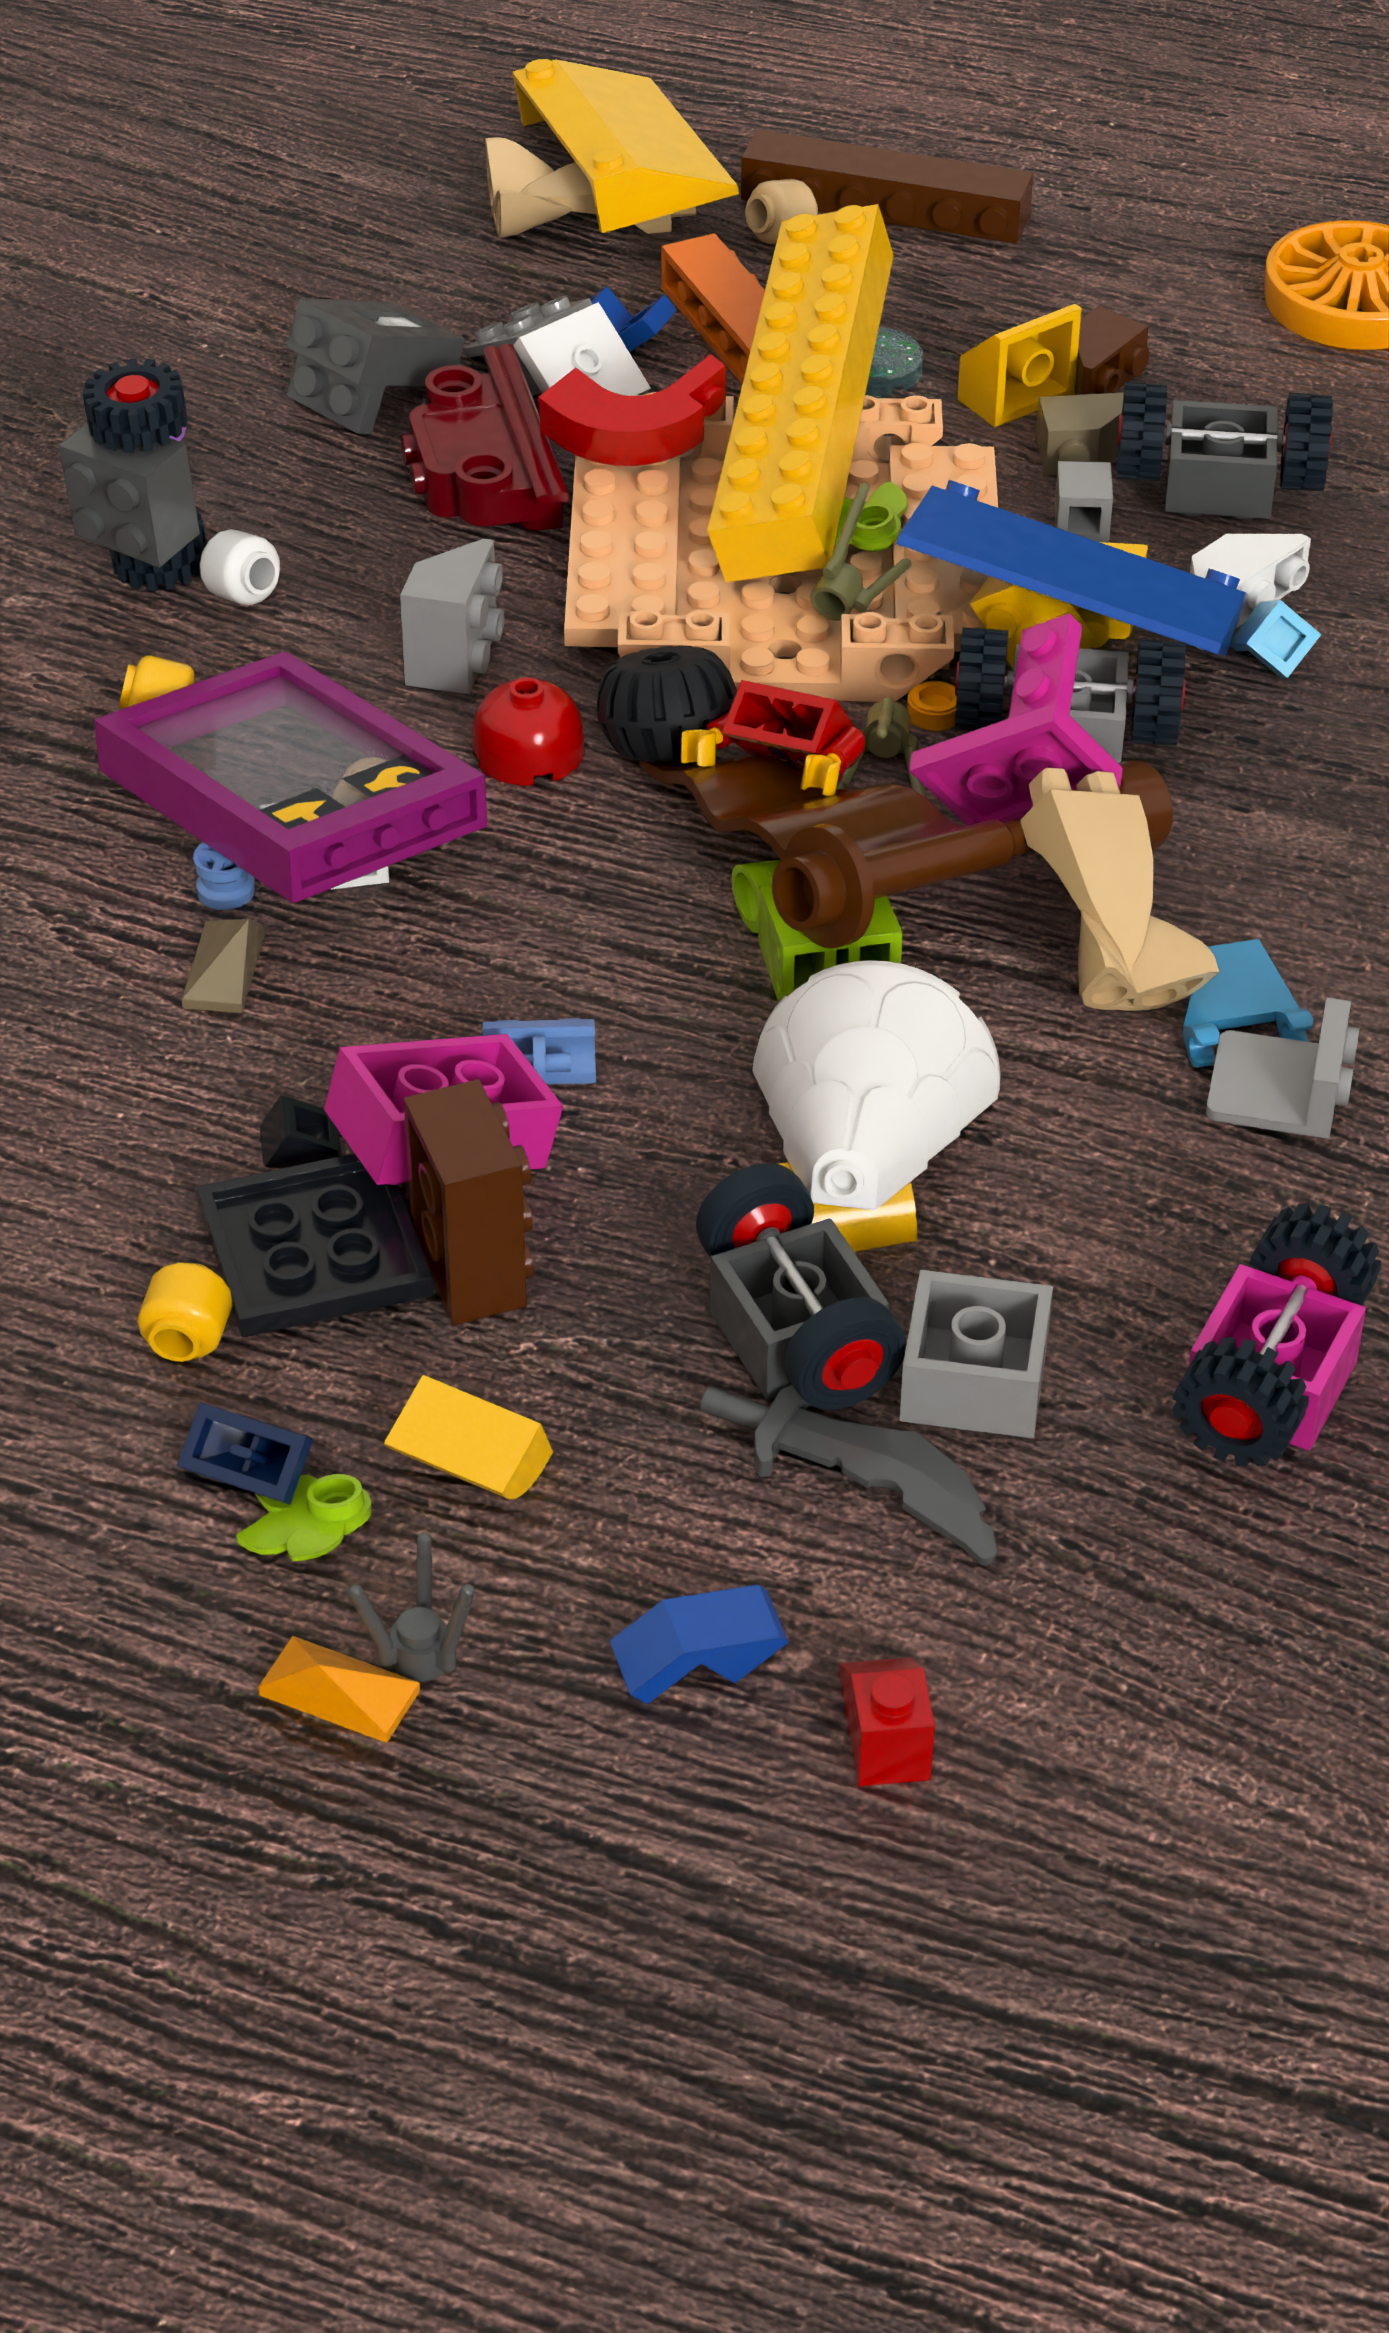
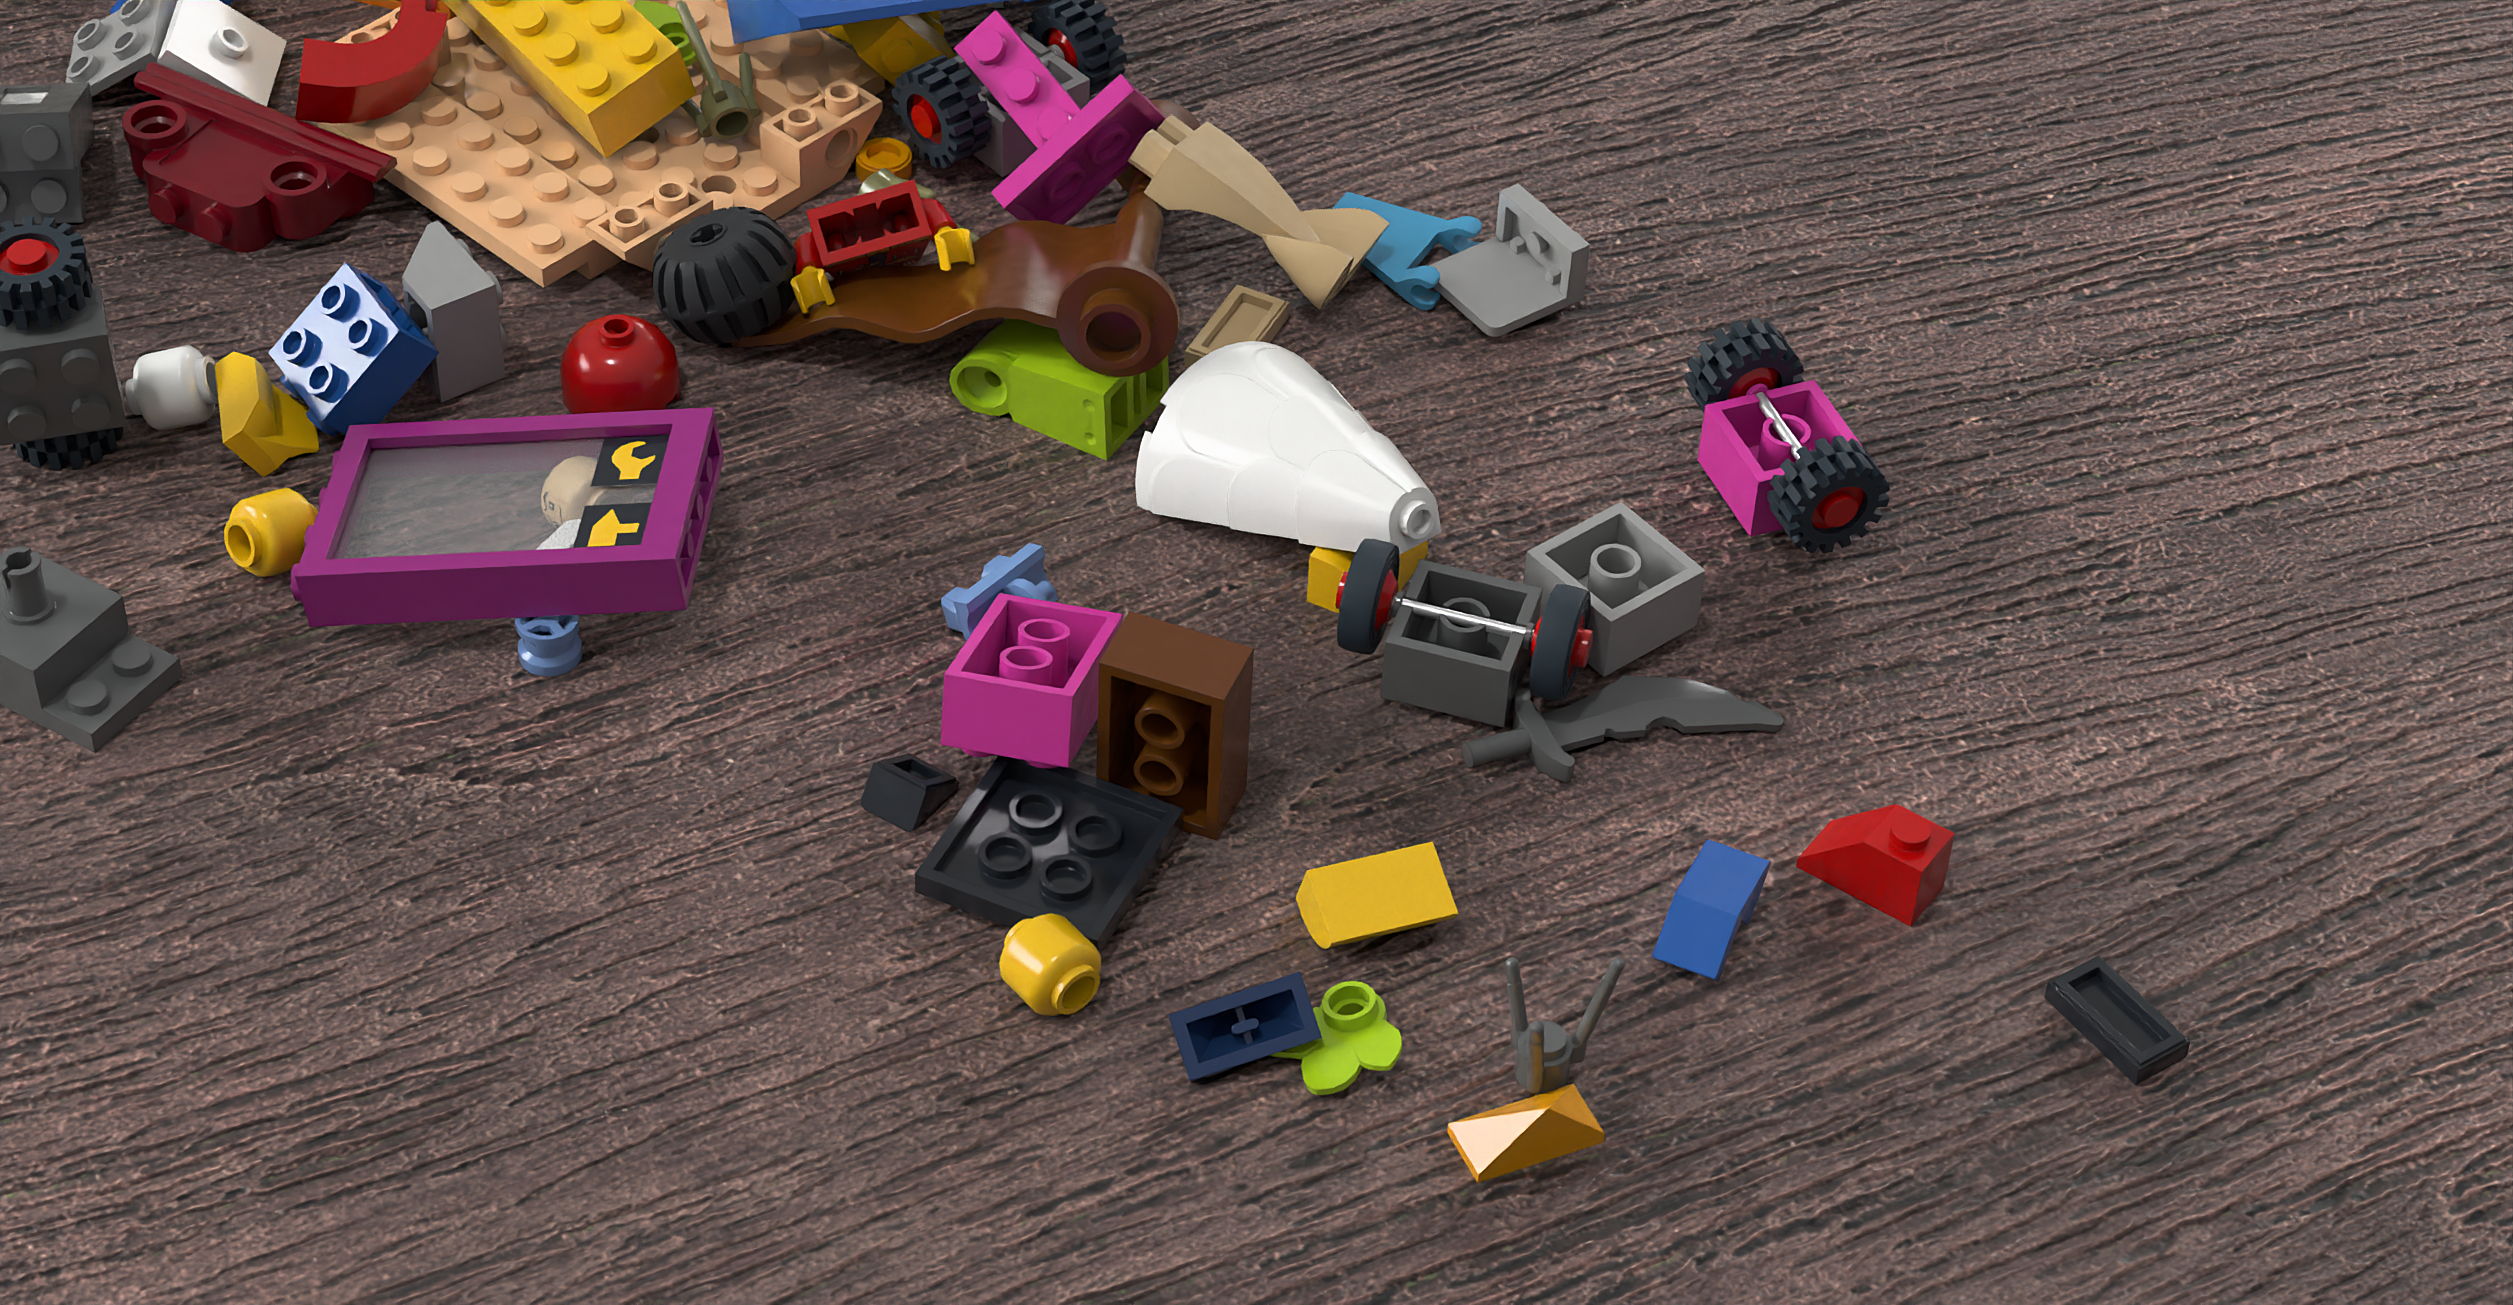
camera: 50 degrees left, 0 degrees up
(224, 965) = (651, 703): dark tan slope -> none
(264, 617) = (258, 417): none -> yellow slope
(351, 606) = (352, 352): none -> blue brick
(901, 1987) = (2117, 1019): none -> black tile
(1014, 985) = (1240, 318): none -> tan tile

